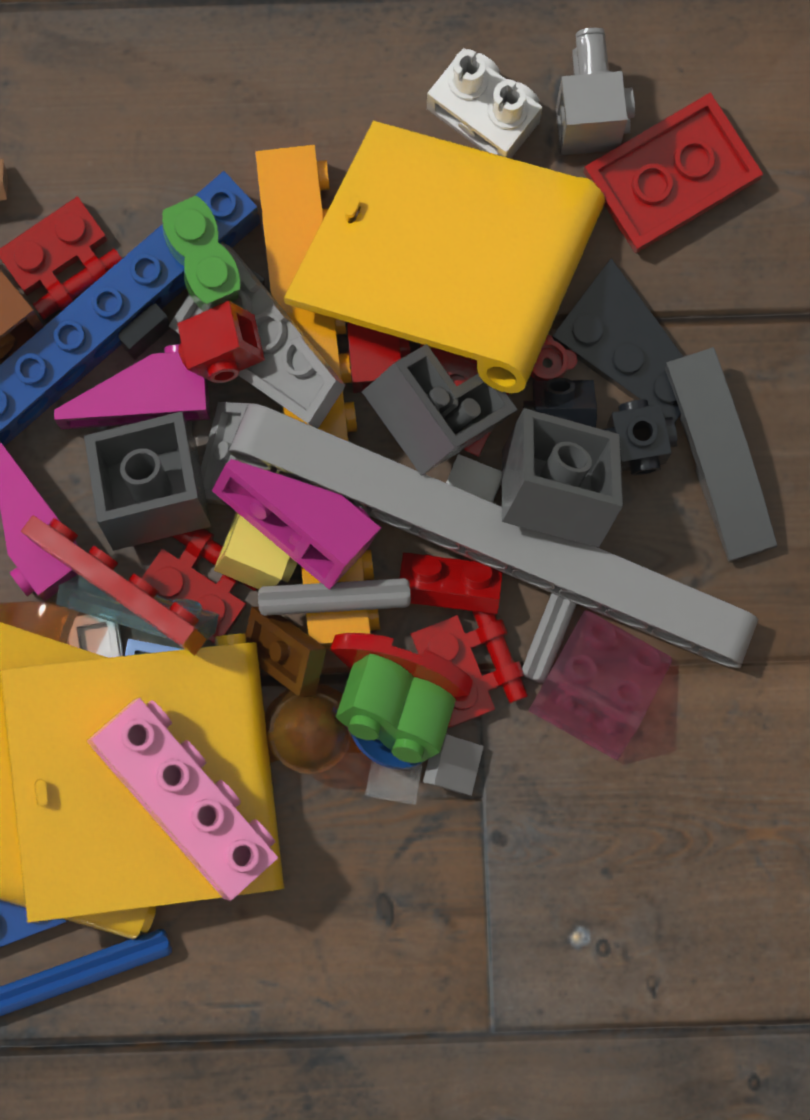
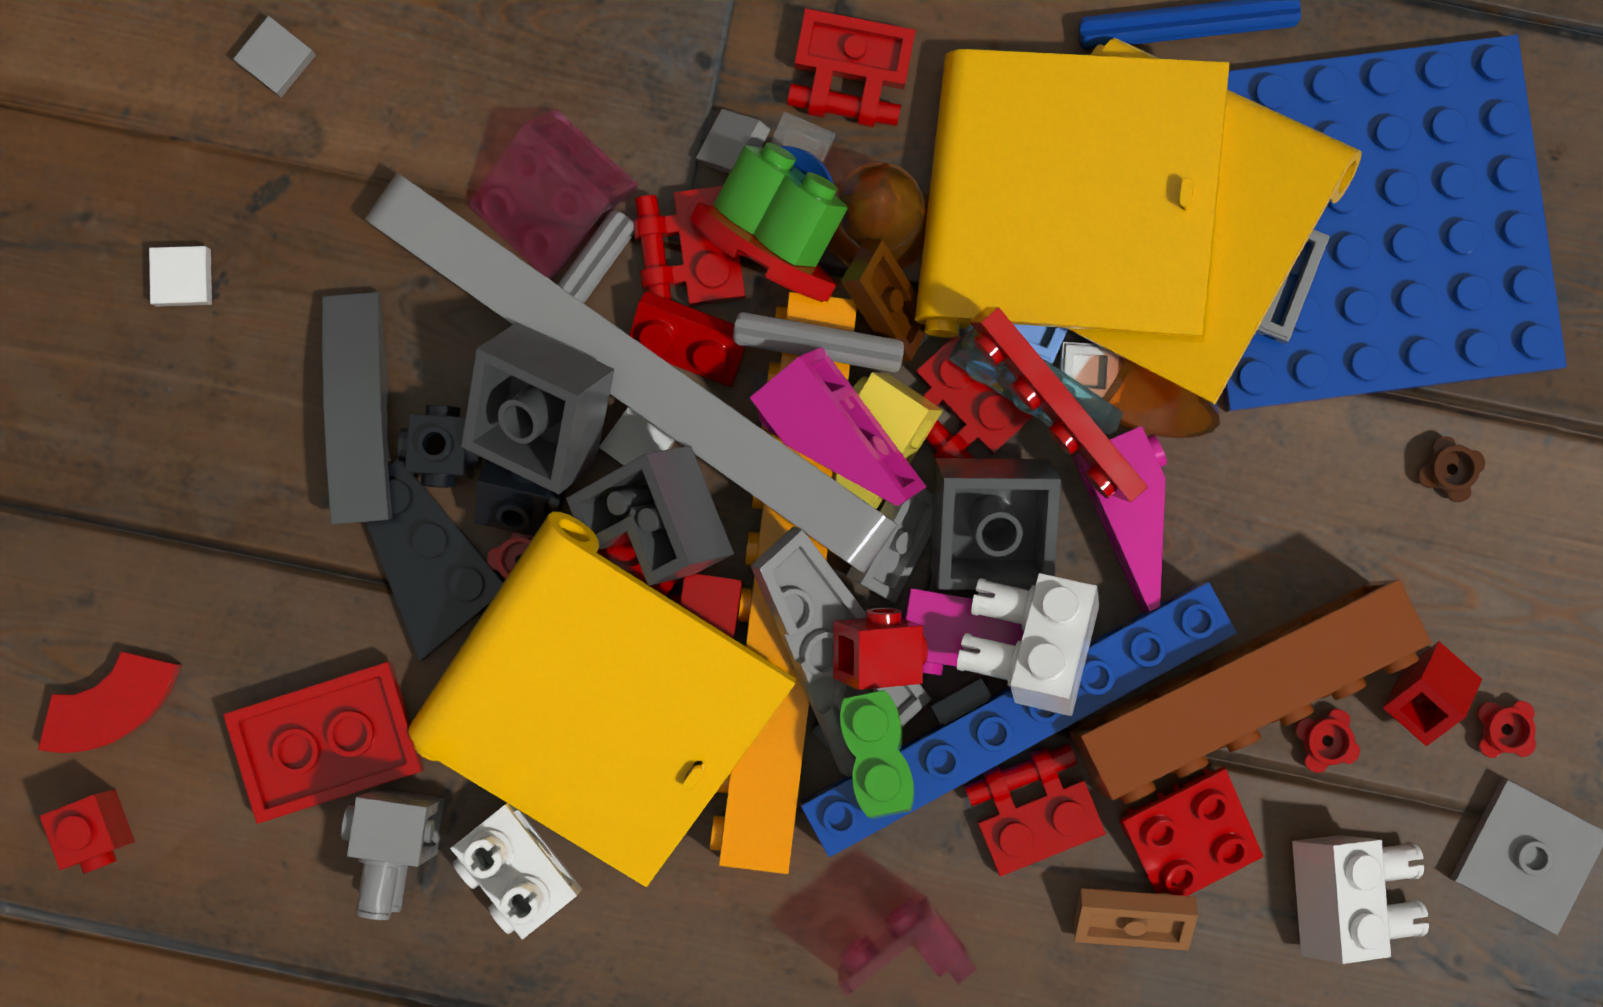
camera: 165 degrees left, 5 degrees up
(72, 382) = (1056, 638): none -> white brick
(144, 132) = (906, 925): none -> clear pink bracket
(183, 798) = (1034, 153): bright pink brick -> none
(365, 874) = (852, 51): none -> red plate

